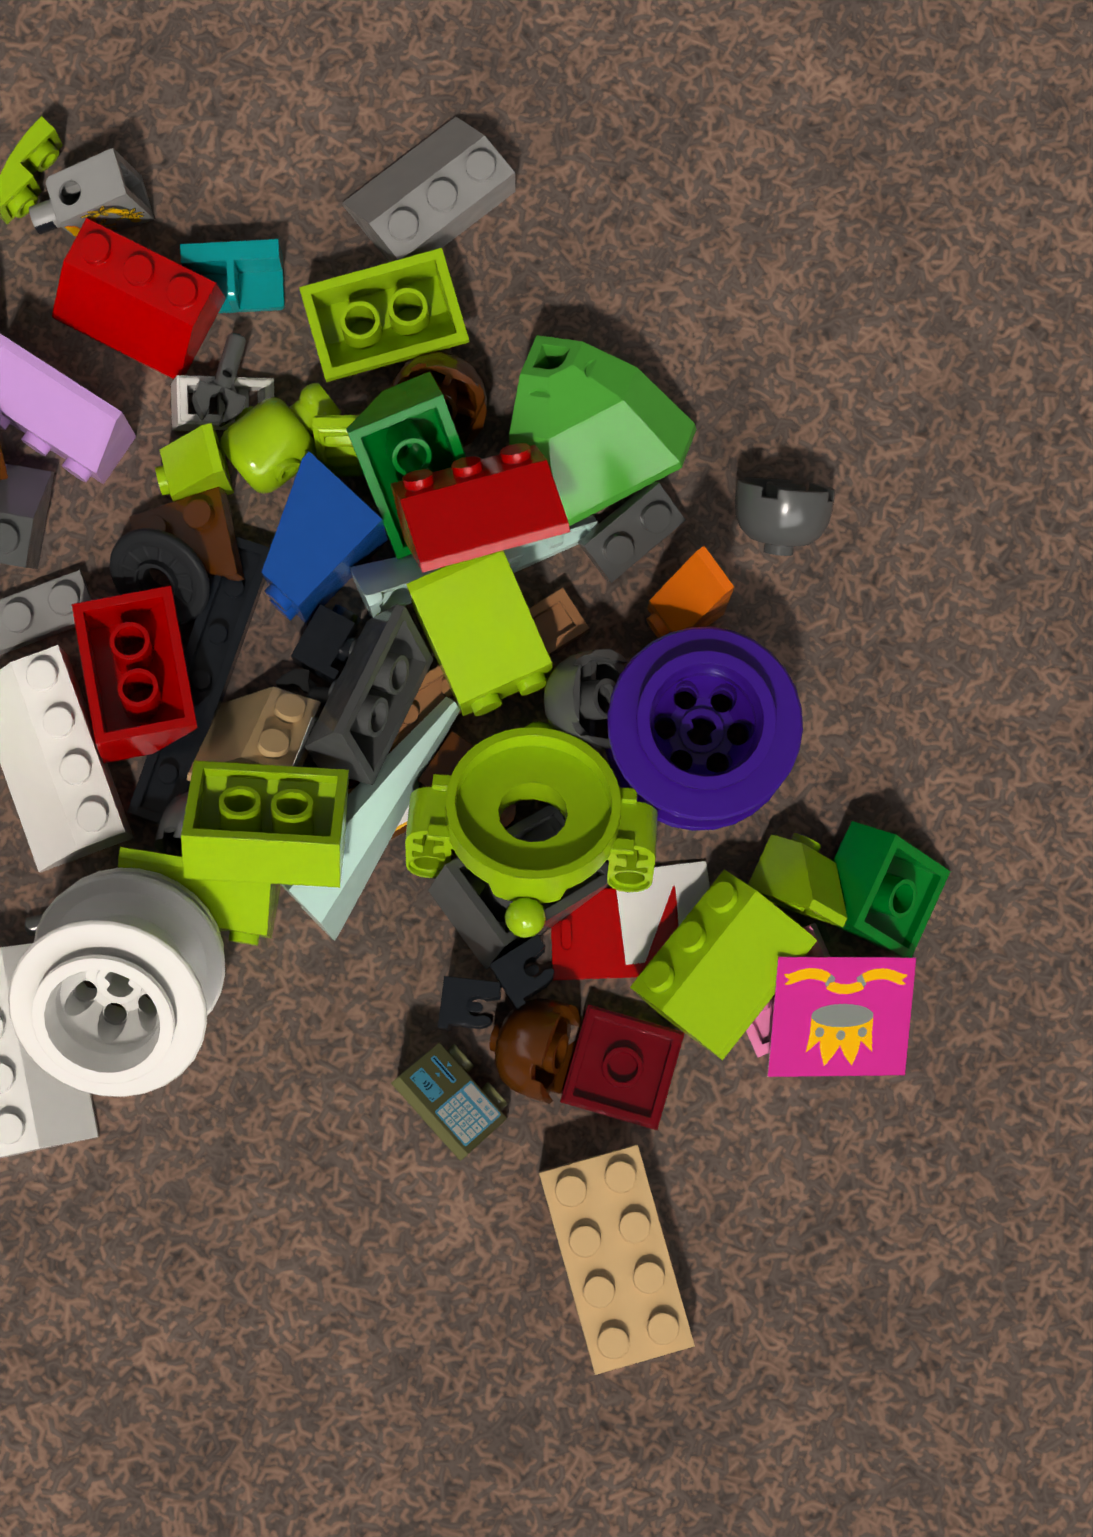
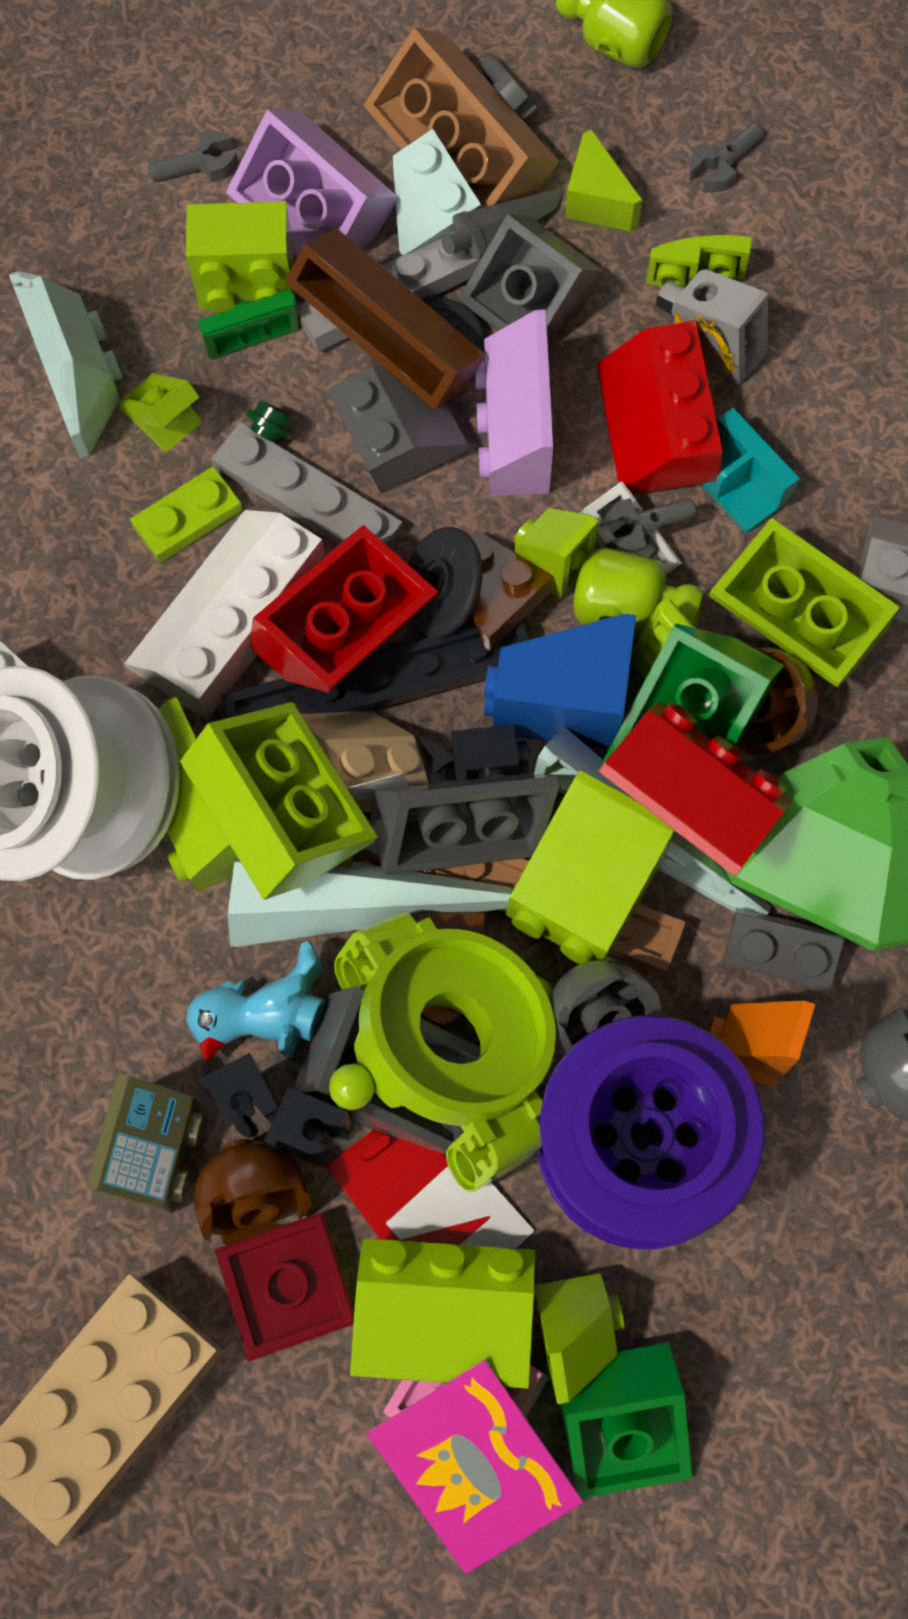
camera: 60 degrees right, 10 degrees down
(413, 940) = (275, 1012): none -> medium azure animal

